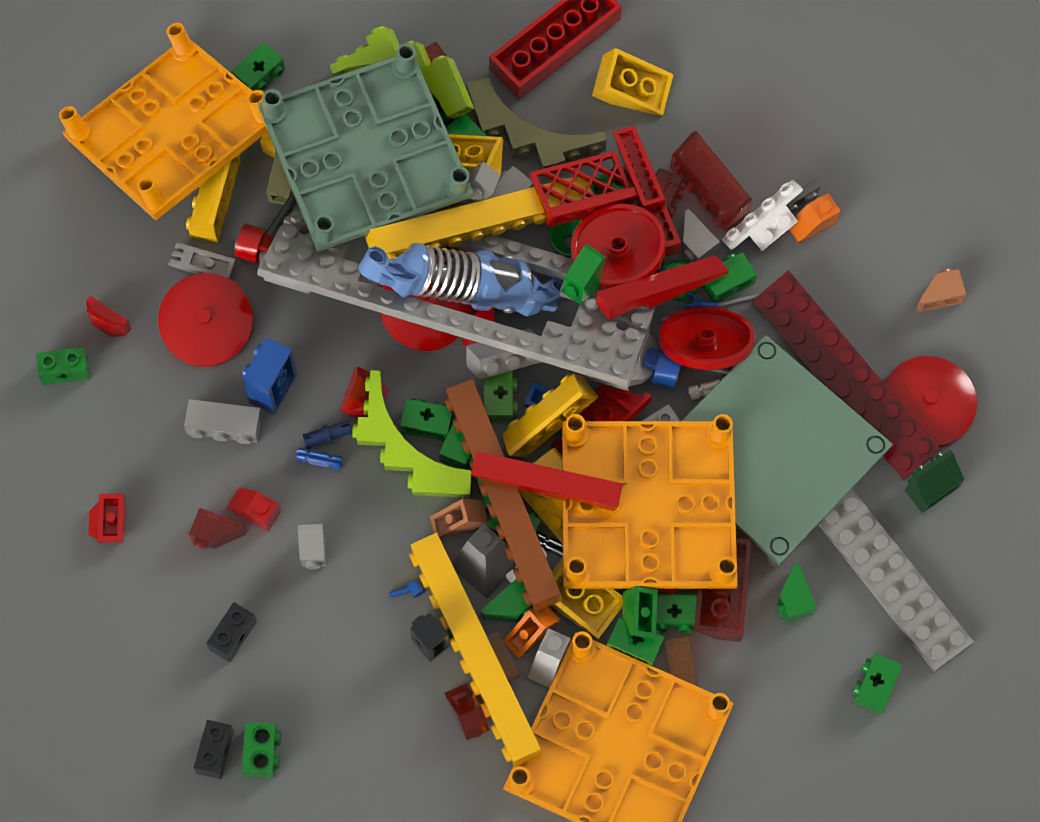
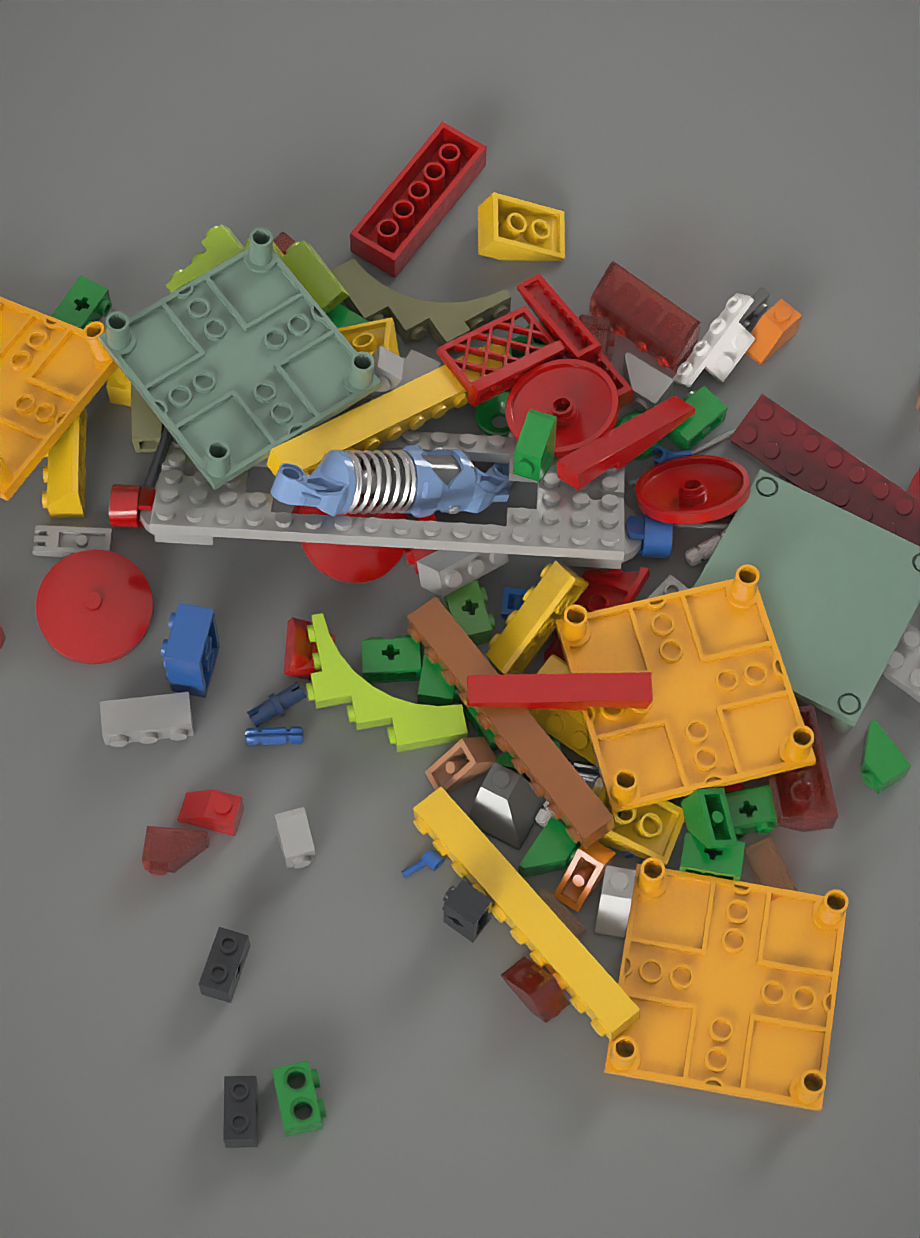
camera: 15 degrees left, 5 degrees down
(108, 519) = (36, 867): red slope -> none

